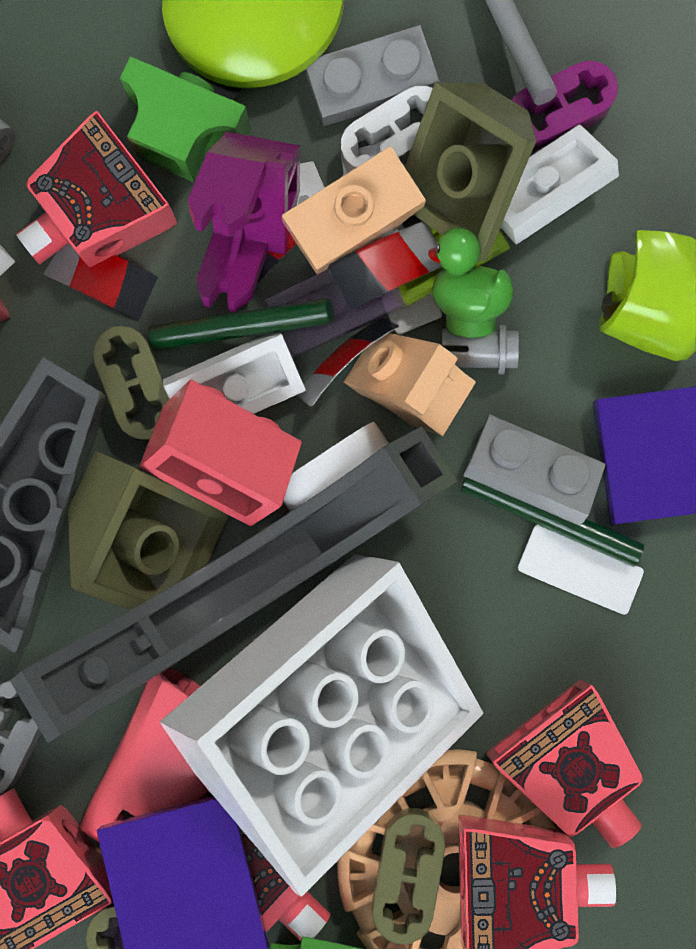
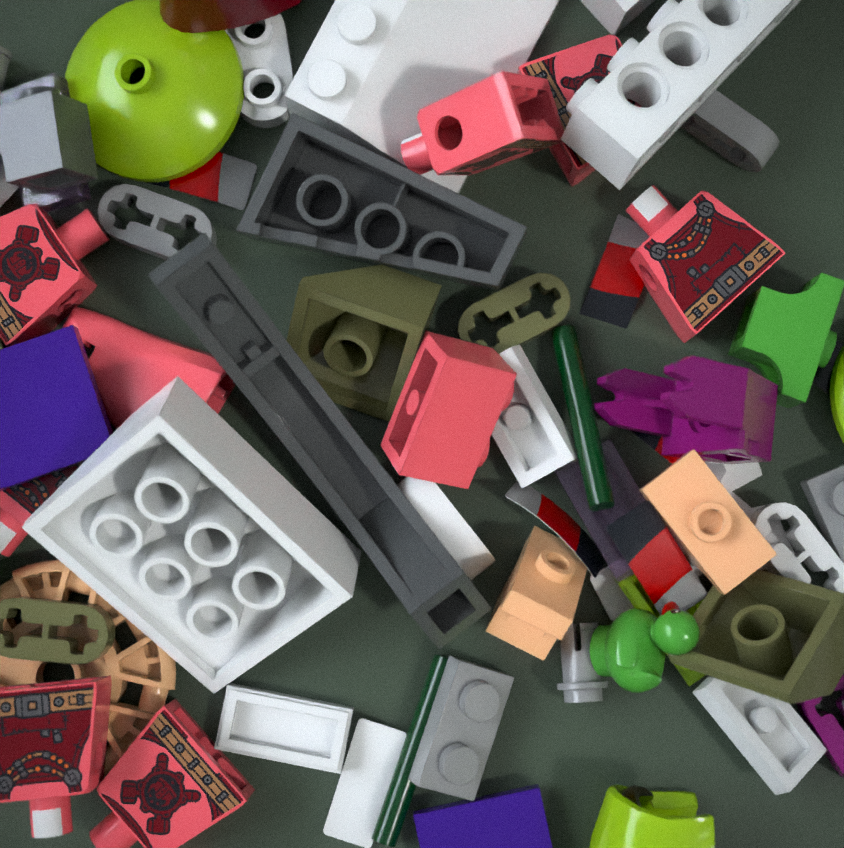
camera: 85 degrees right, 0 degrees up
(522, 645) = (284, 728): none -> white tile

